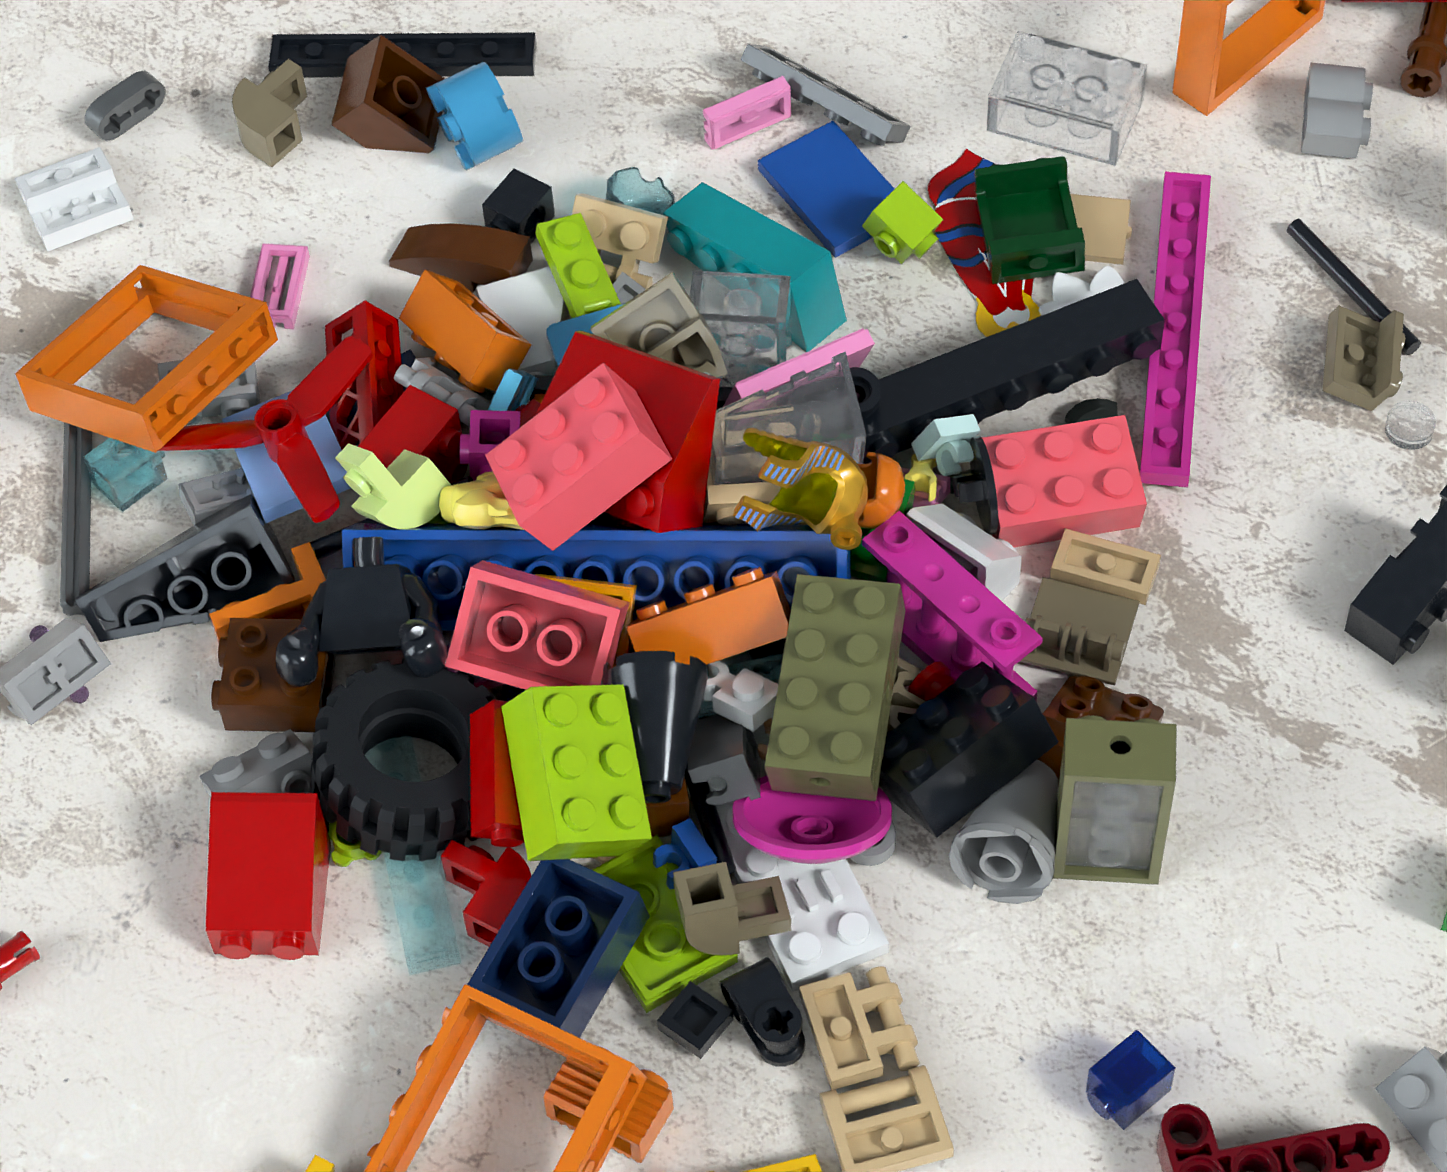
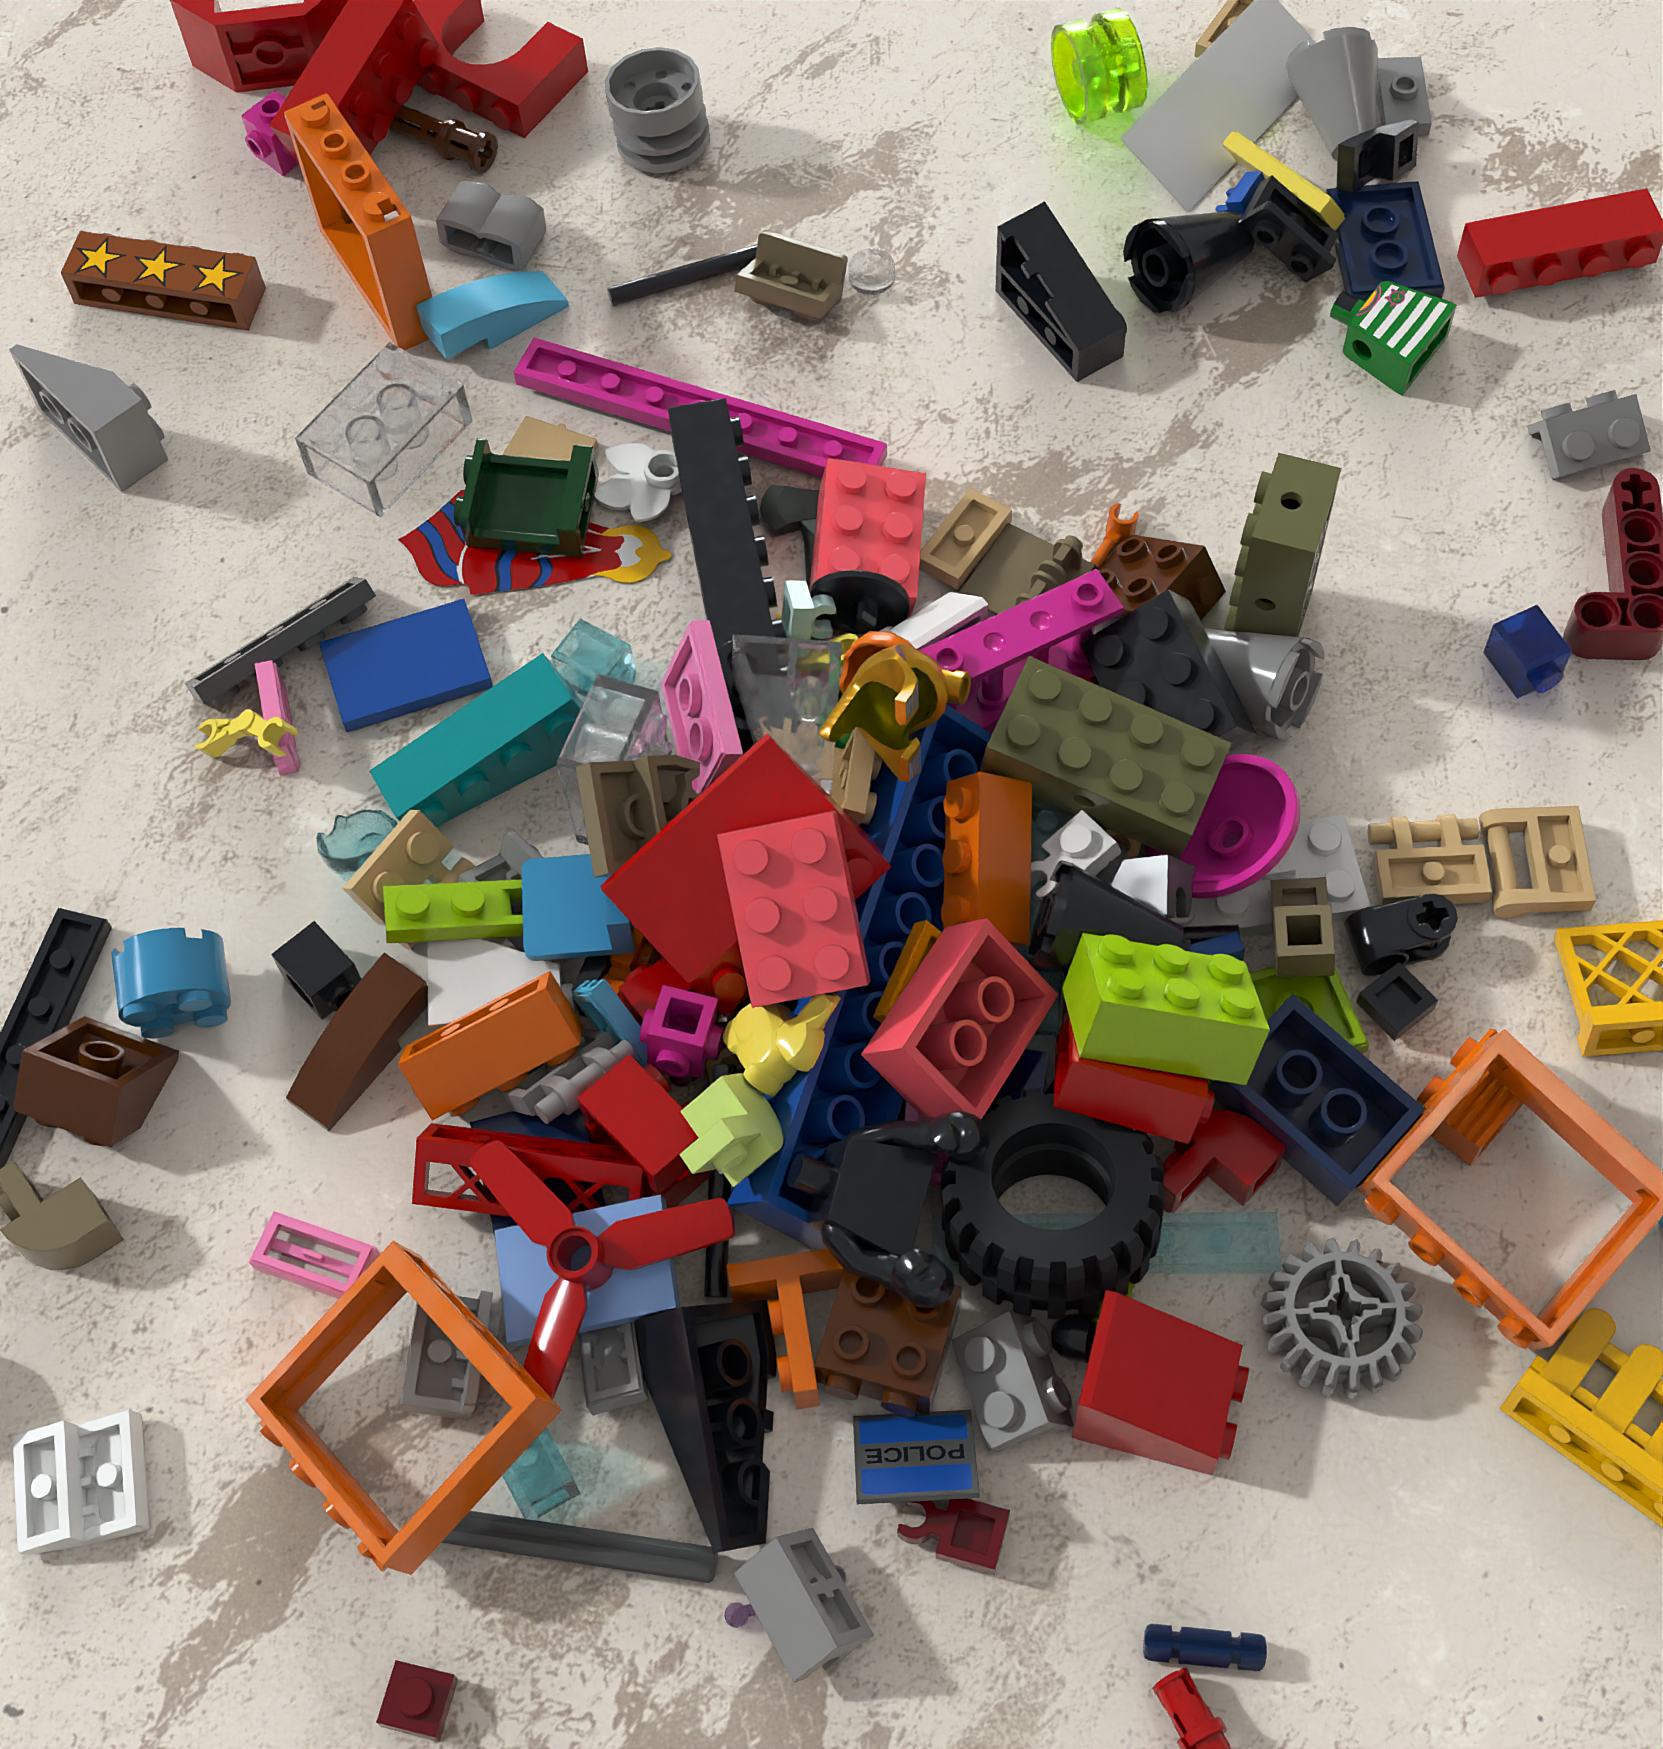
camera: 75 degrees left, 5 degrees up
(60, 967) = (1205, 1647): none -> dark blue axle
(128, 772) = (967, 1532): none -> dark red plate
(176, 720) = (915, 1457): none -> piece
(319, 1031) = (1386, 1309): none -> light grey gear
(721, 88) = (226, 732): none -> light yellow piece
(871, 306) = (592, 652): none -> clear light blue brick
(903, 224) = (493, 604): lime brick -> none
(1173, 686) = (1116, 532): none -> orange hand
(1232, 136) = (489, 310): none -> medium azure slope

